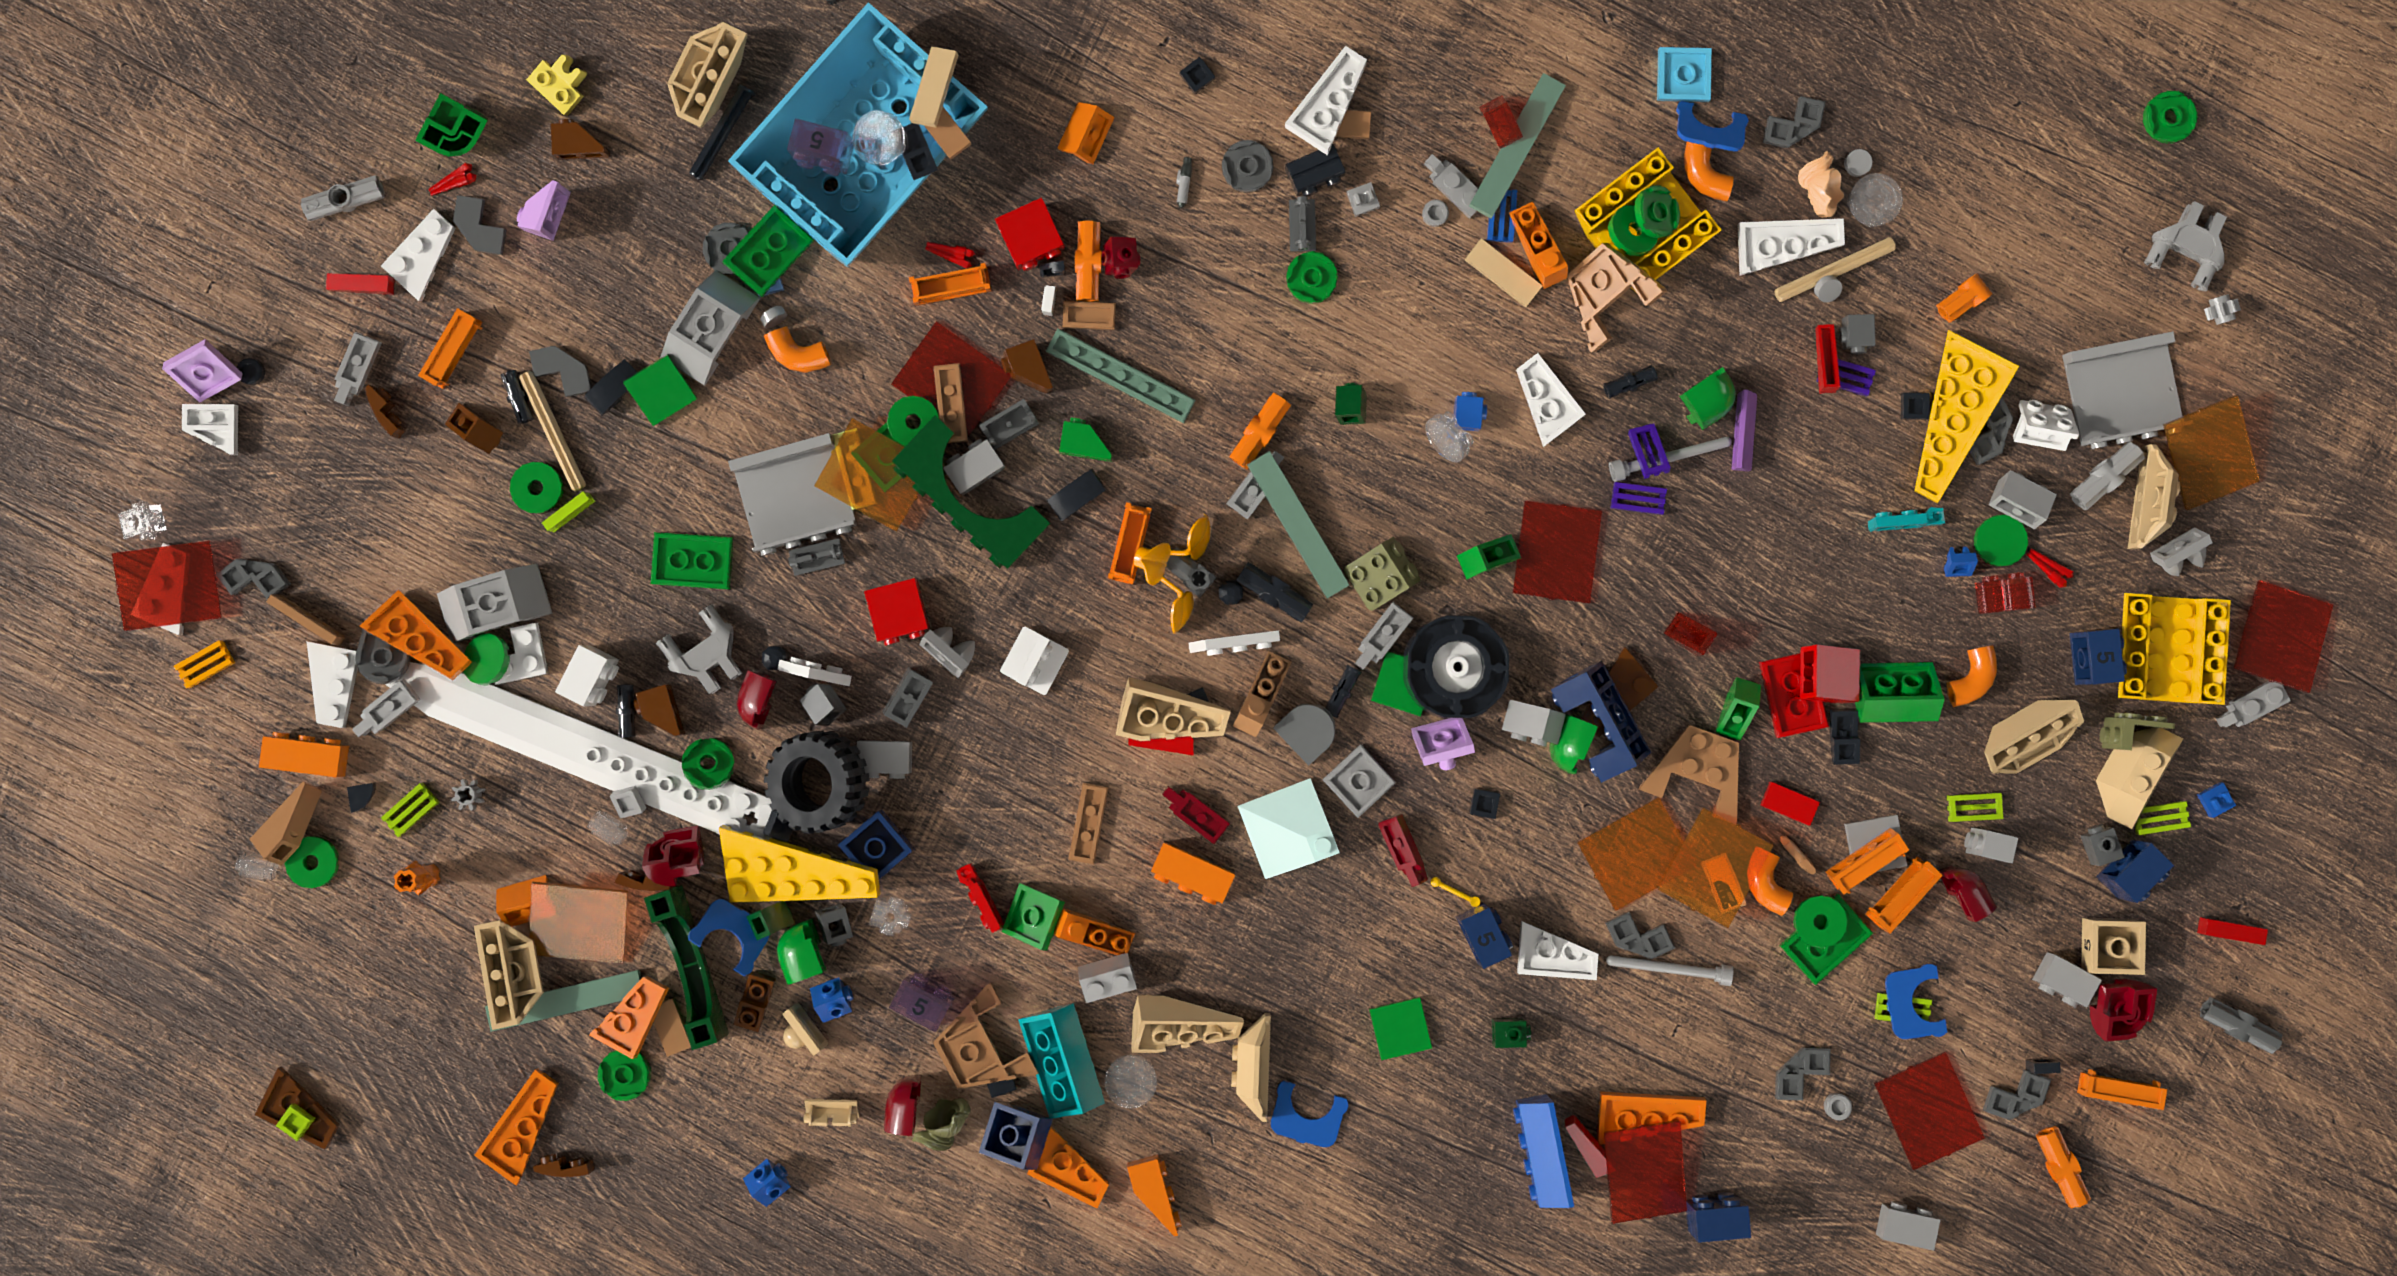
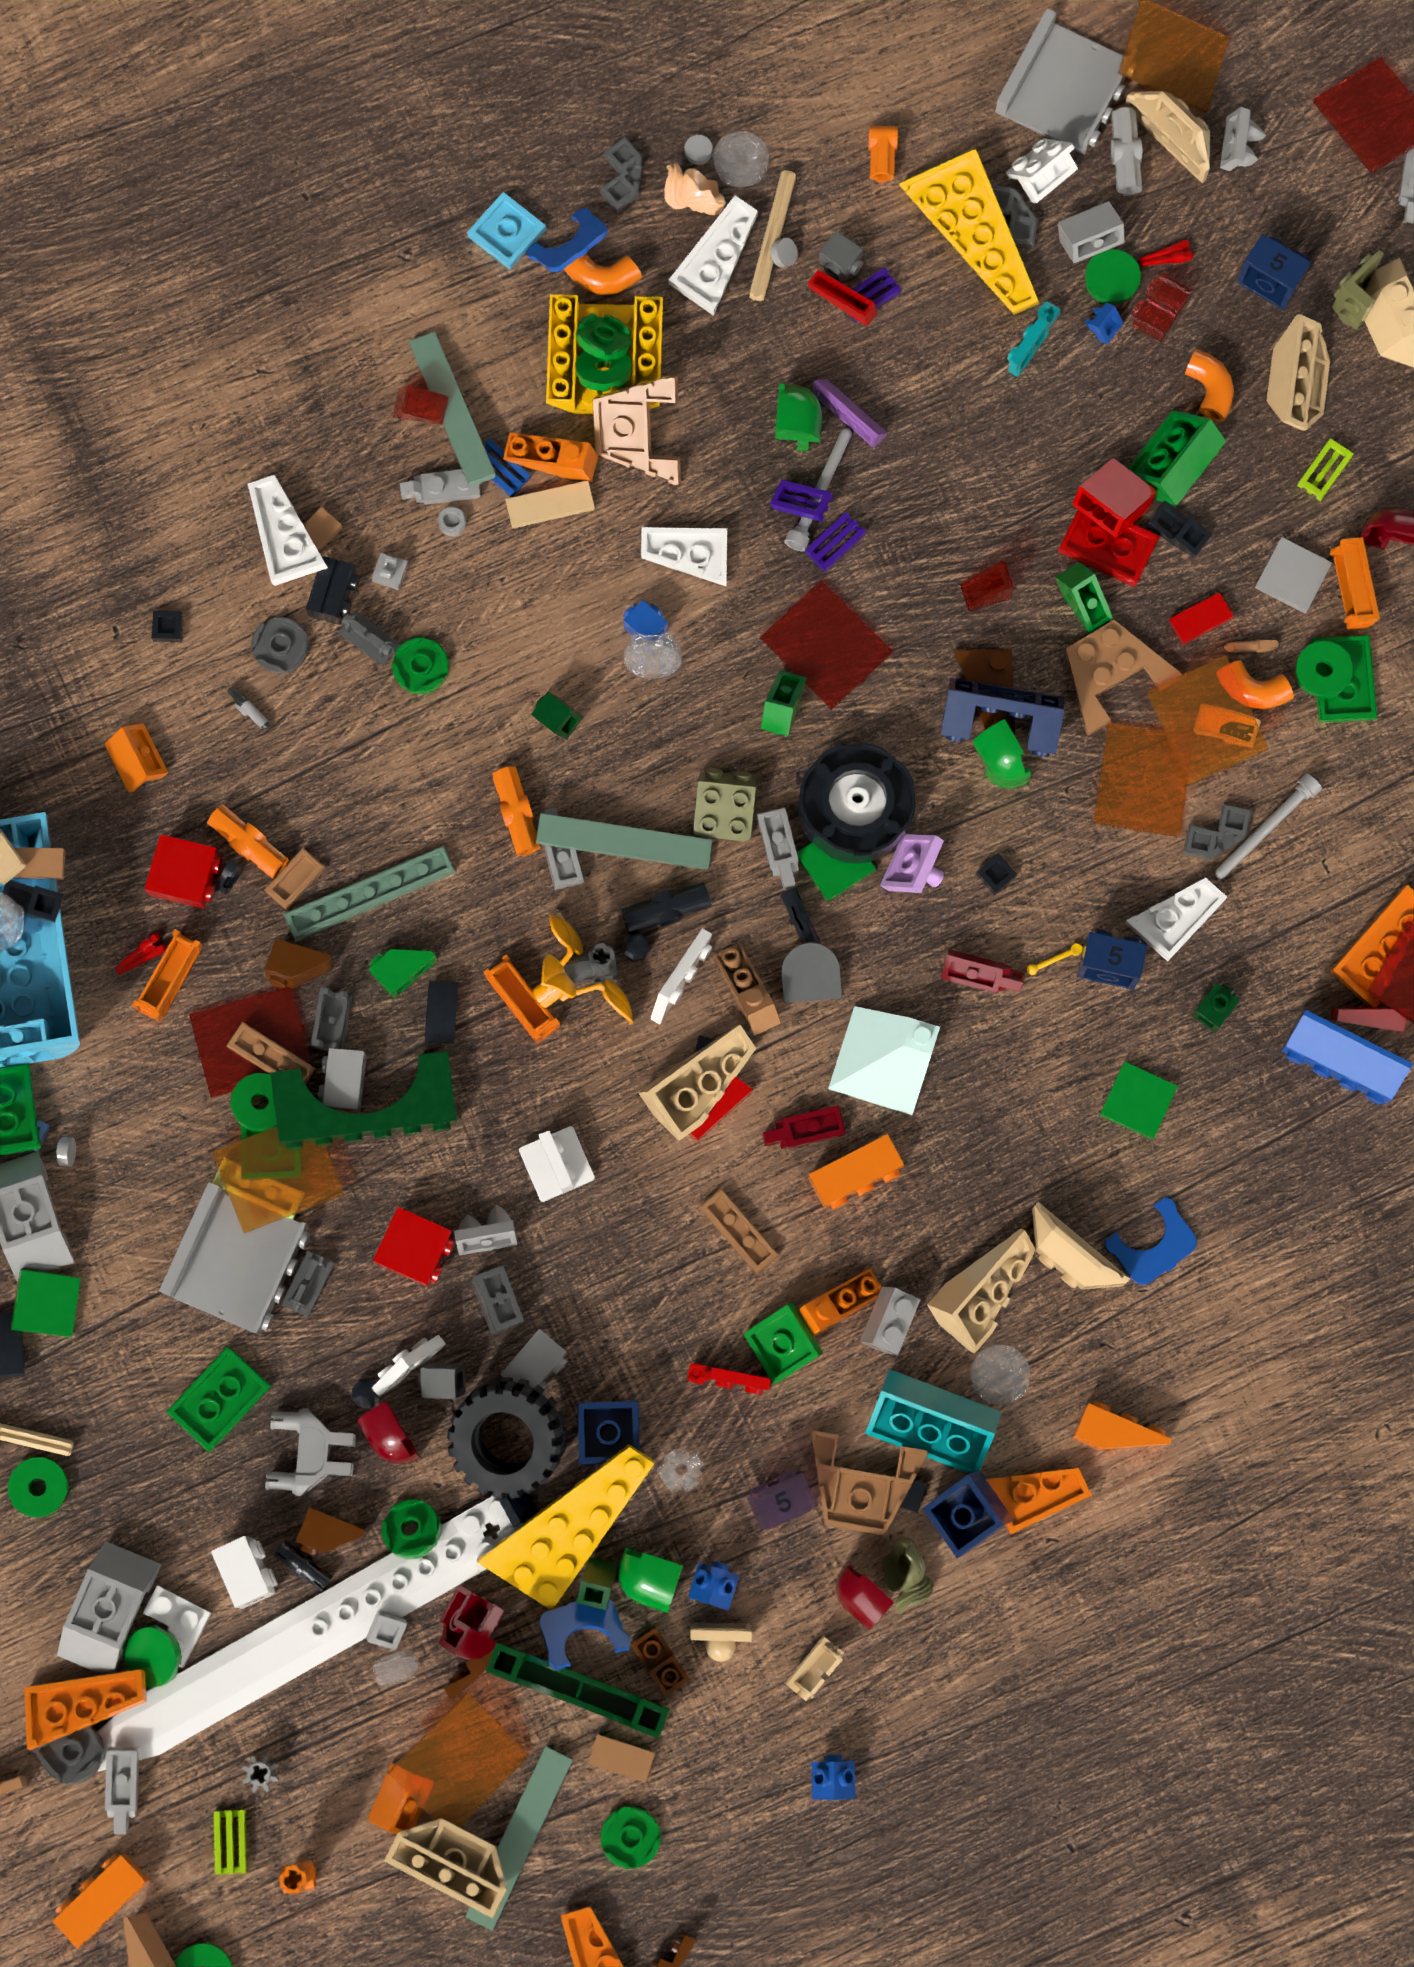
camera: 50 degrees left, 10 degrees down
(333, 682) = (56, 1819): white wing -> none
(360, 796) = (180, 1878): black tile -> none
(568, 512) = (84, 1474): lime tile -> none
(631, 1020) = (586, 1786): orange wing -> none
(794, 356) = (115, 1161): orange cylinder -> none
(841, 932) = (647, 1519): dark grey brick -> none
(1048, 300) = (253, 901): white tile -> none
(1120, 257) = (267, 809): dark red brick -> none
(1359, 781) = (890, 966): light grey tile -> none
(1534, 722) = (958, 774): light grey brick -> none
(1630, 381) = (729, 472): black pin -> none
(1867, 860) = (1301, 589): orange container -> none
(1915, 406) = (941, 259): black tile -> none
(1991, 845) = (1367, 478): light grey brick -> none
(2175, 649) = (1318, 206): yellow slope -> none

